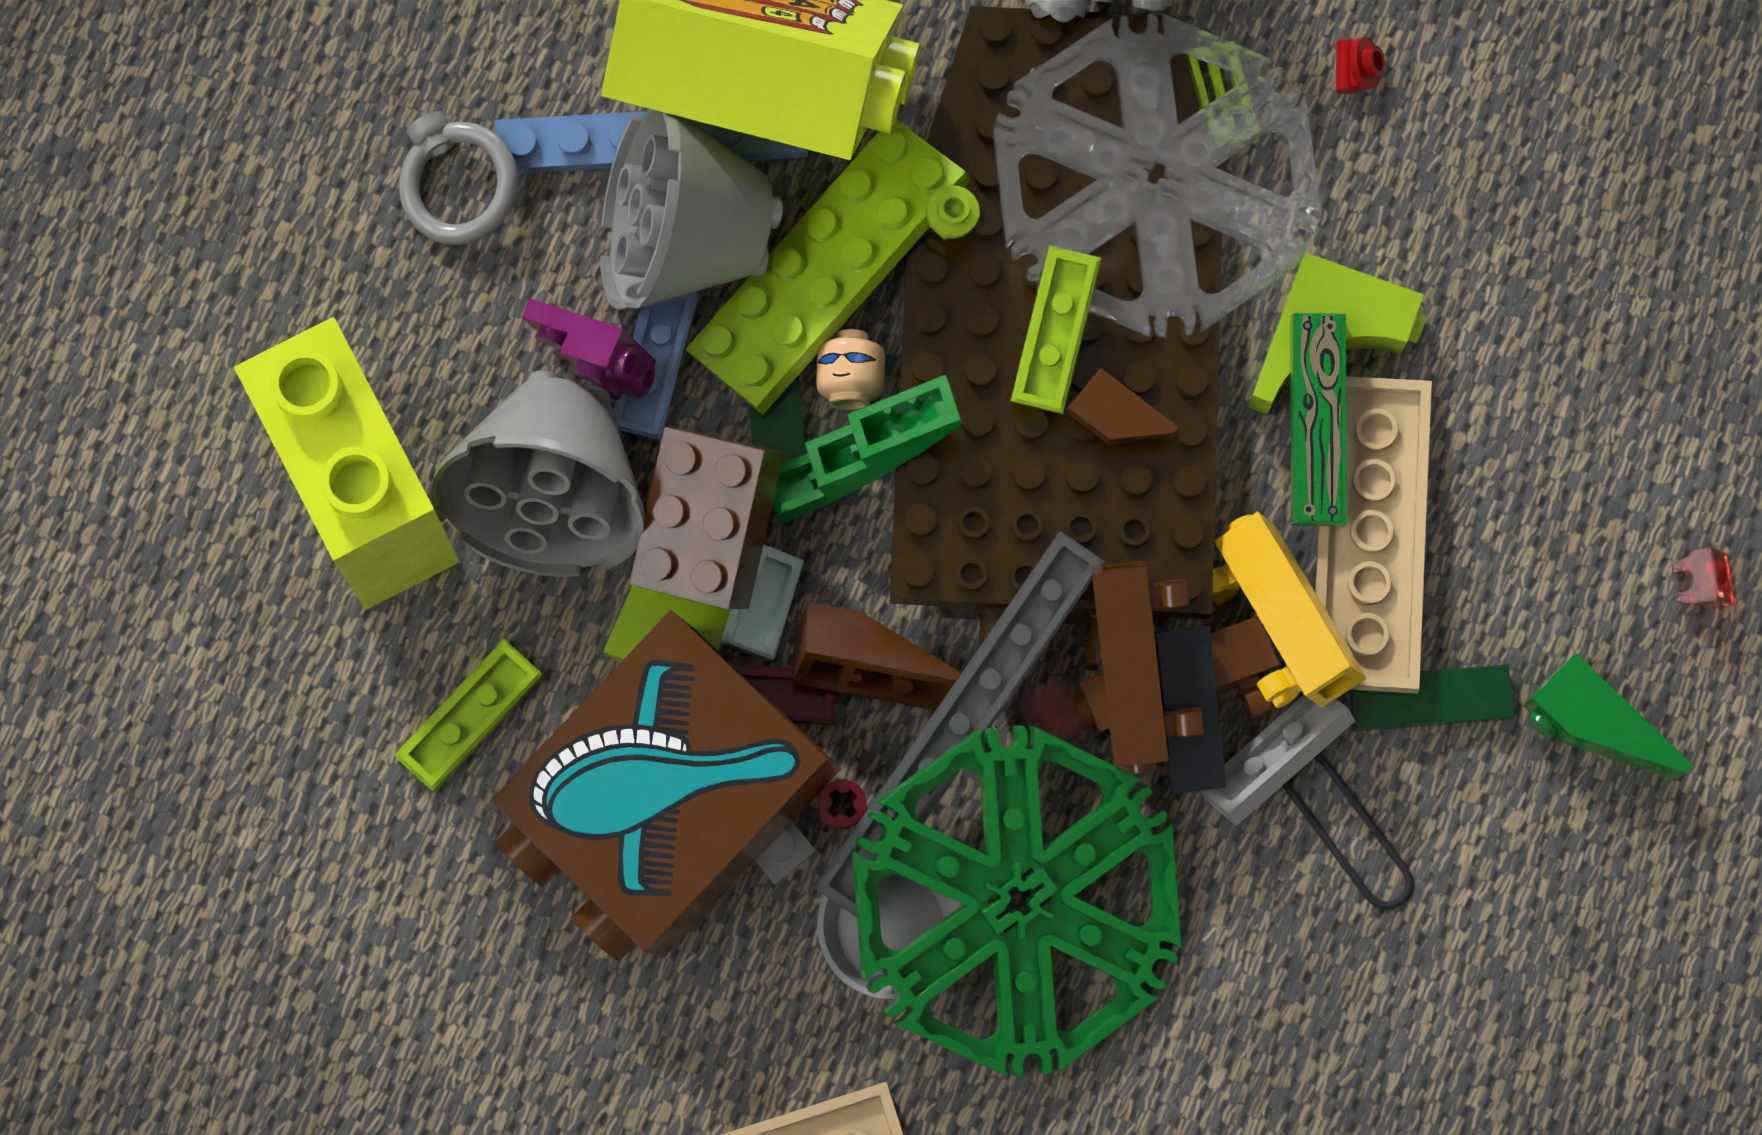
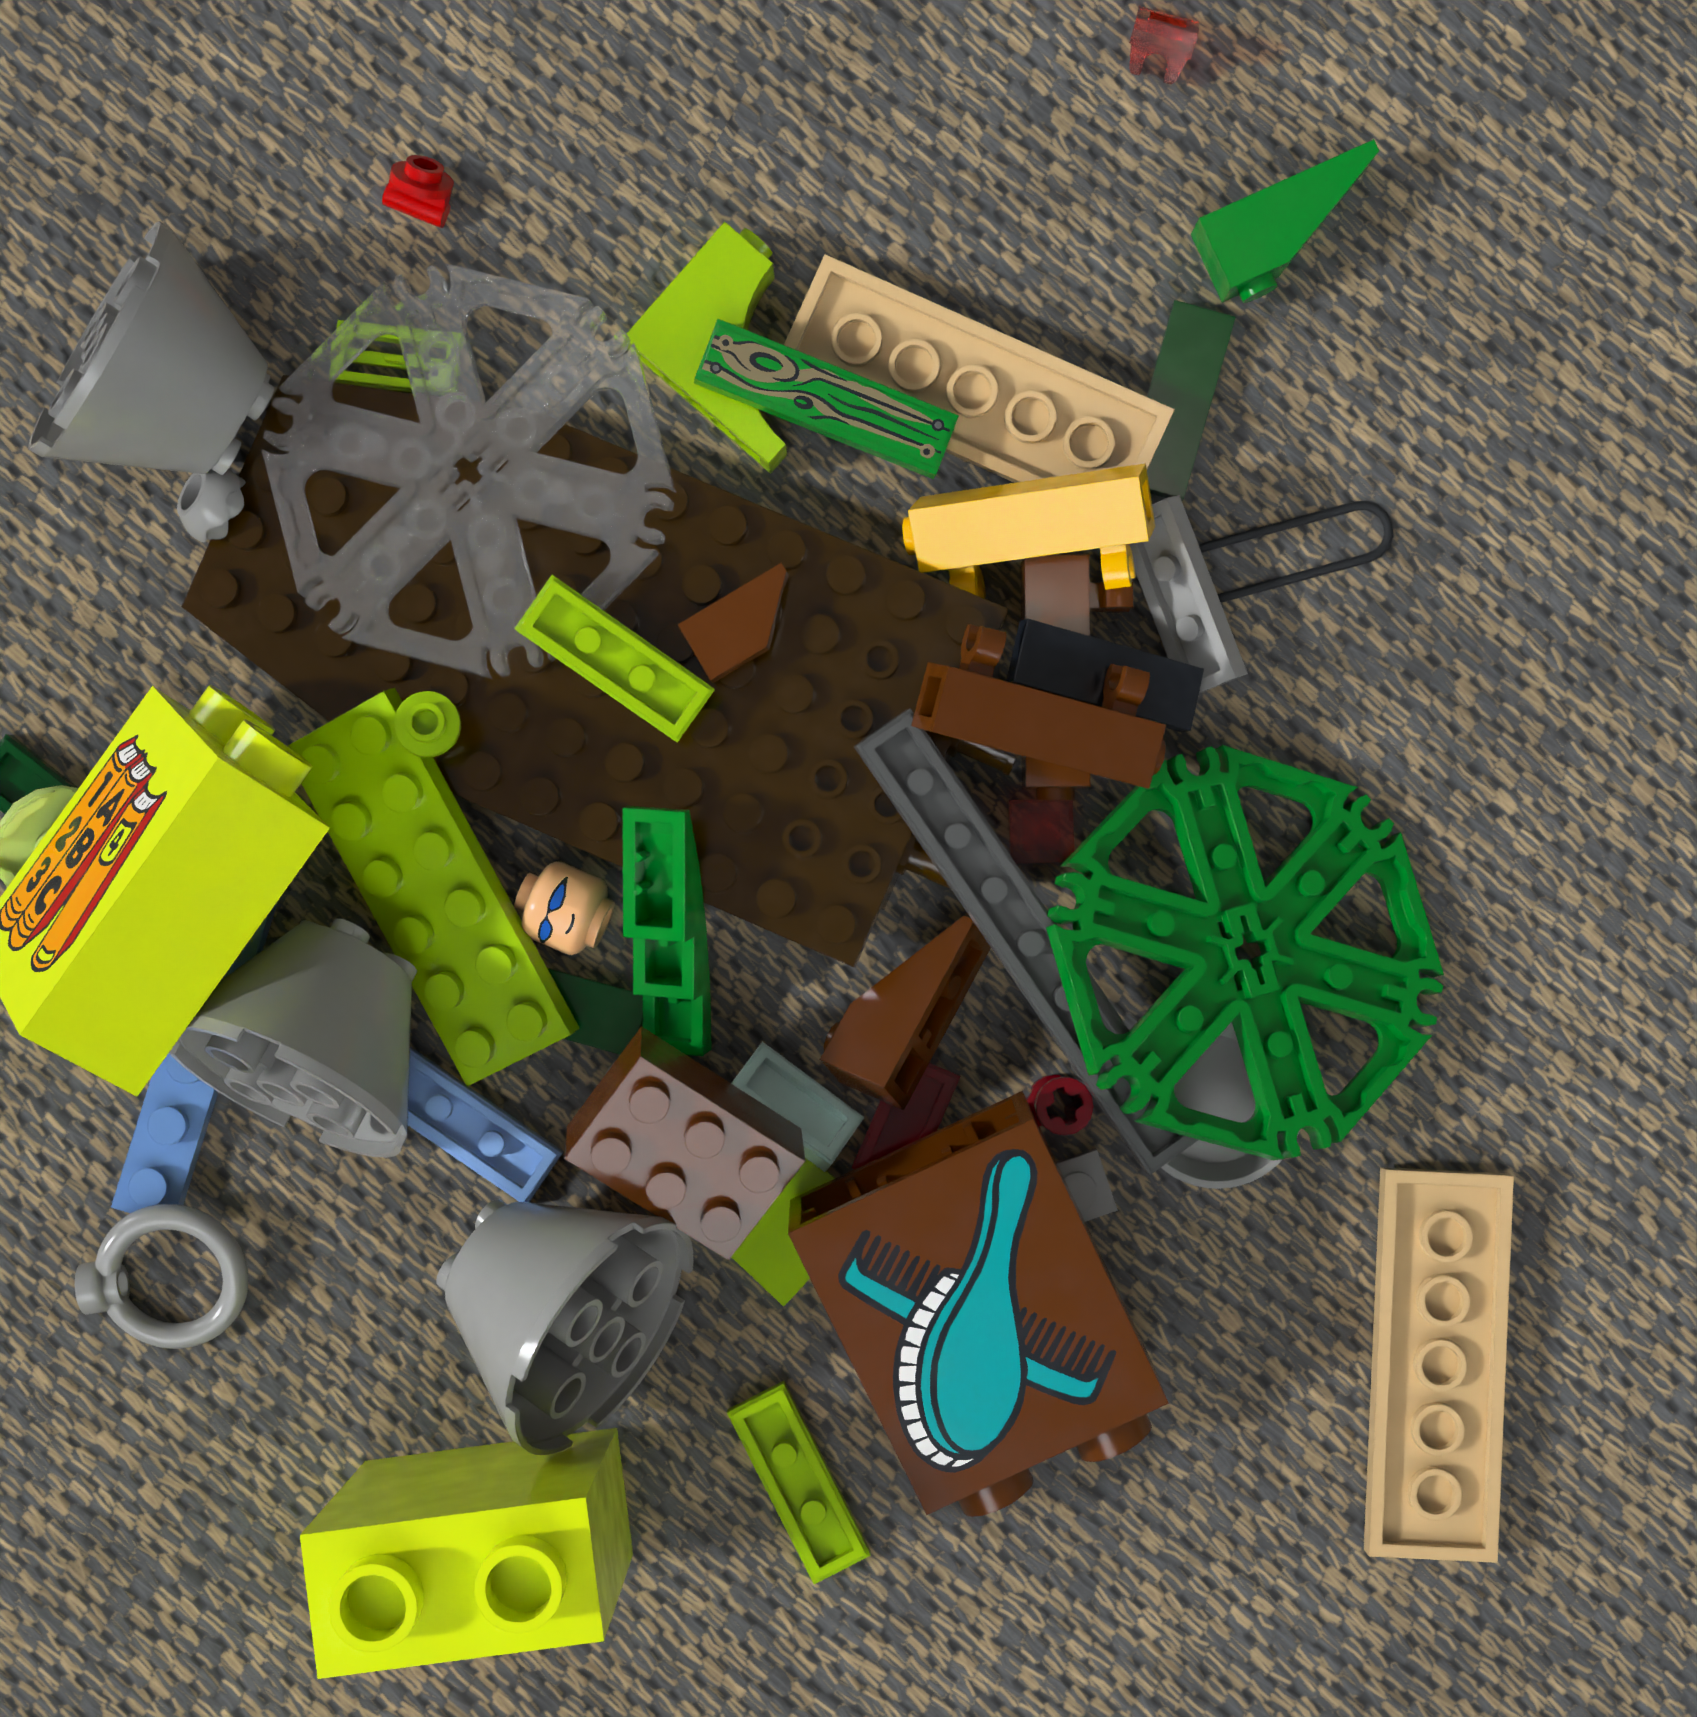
camera: 70 degrees left, 10 degrees up
(595, 348) = (441, 1199): magenta plate -> none

